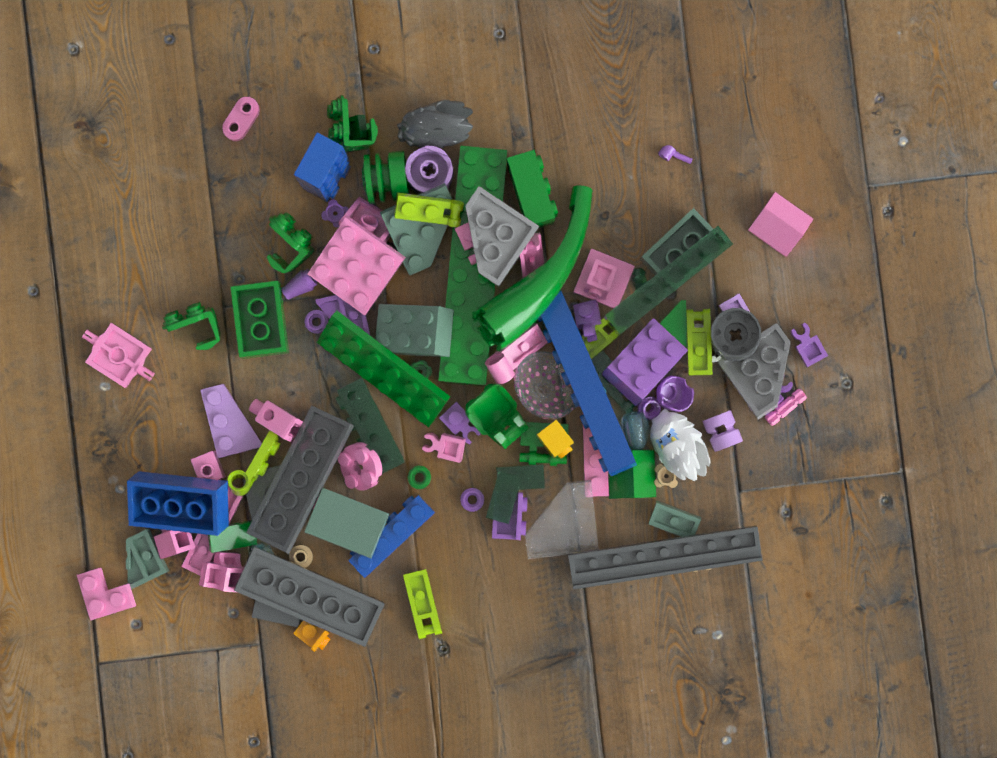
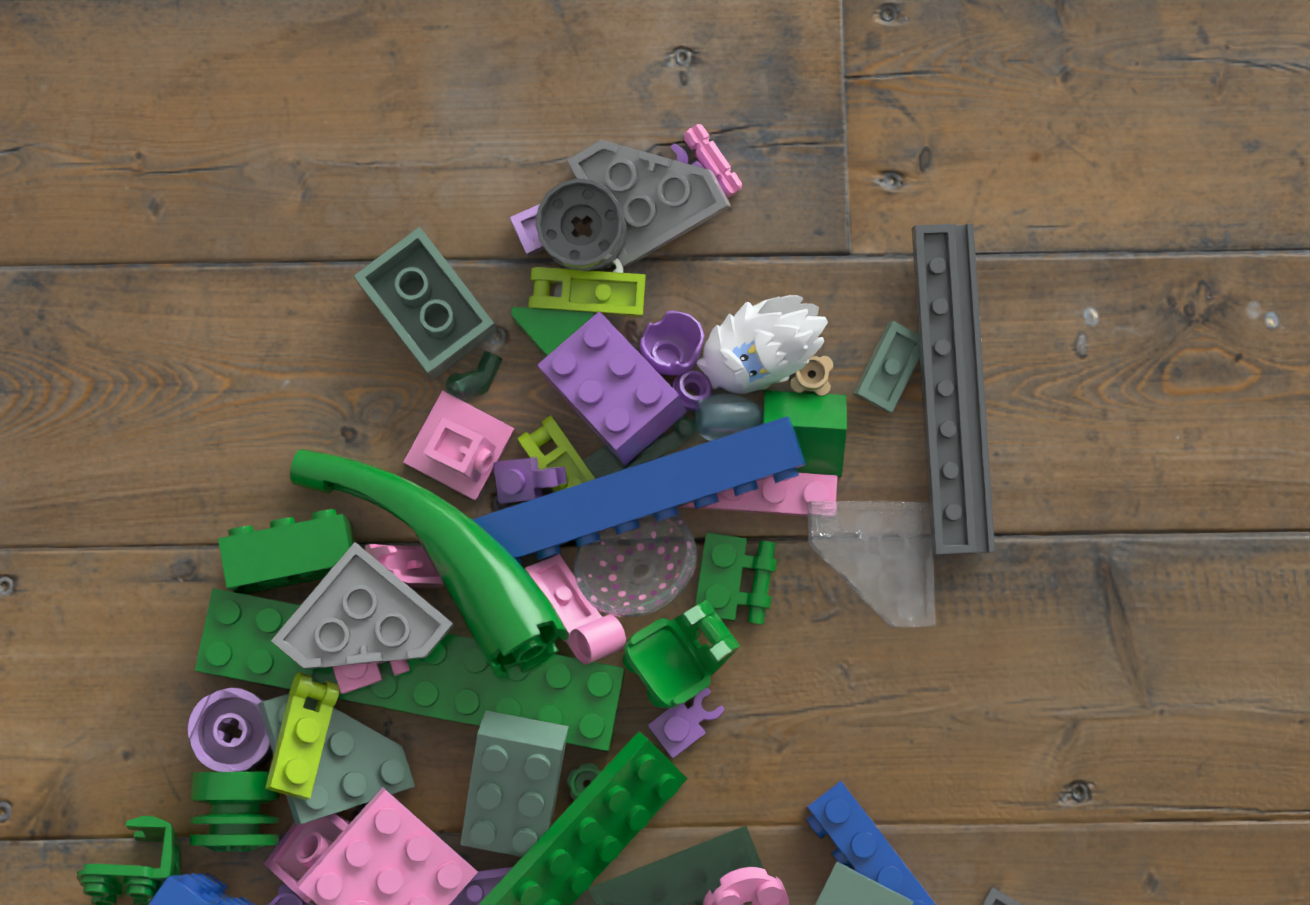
camera: 85 degrees left, 5 degrees down
(357, 127) = (139, 851): dark green plate -> none
(411, 477) = (784, 813): green plate -> none
(422, 602) = (995, 820): lime plate -> none
(436, 125) = (152, 711): dark grey head -> none
(448, 447) = (725, 745): bright pink plate -> none
(472, 507) = (835, 710): medium lavender plate -> none
(503, 497) = (825, 656): clear green plate -> none
(516, 526) = (856, 651): medium lavender bracket -> none
(531, 475) = (791, 625): clear green plate -> none
(555, 440) = (734, 553): yellow brick -> none
(668, 151) = (249, 312): medium lavender hand -> none
(668, 280) = (477, 328): clear green brick -> none
(724, 439) = (758, 267): lavender wheel -> none
(780, 224) = (399, 136): bright pink slope -> none
(809, 348) = (618, 110): medium lavender plate -> none

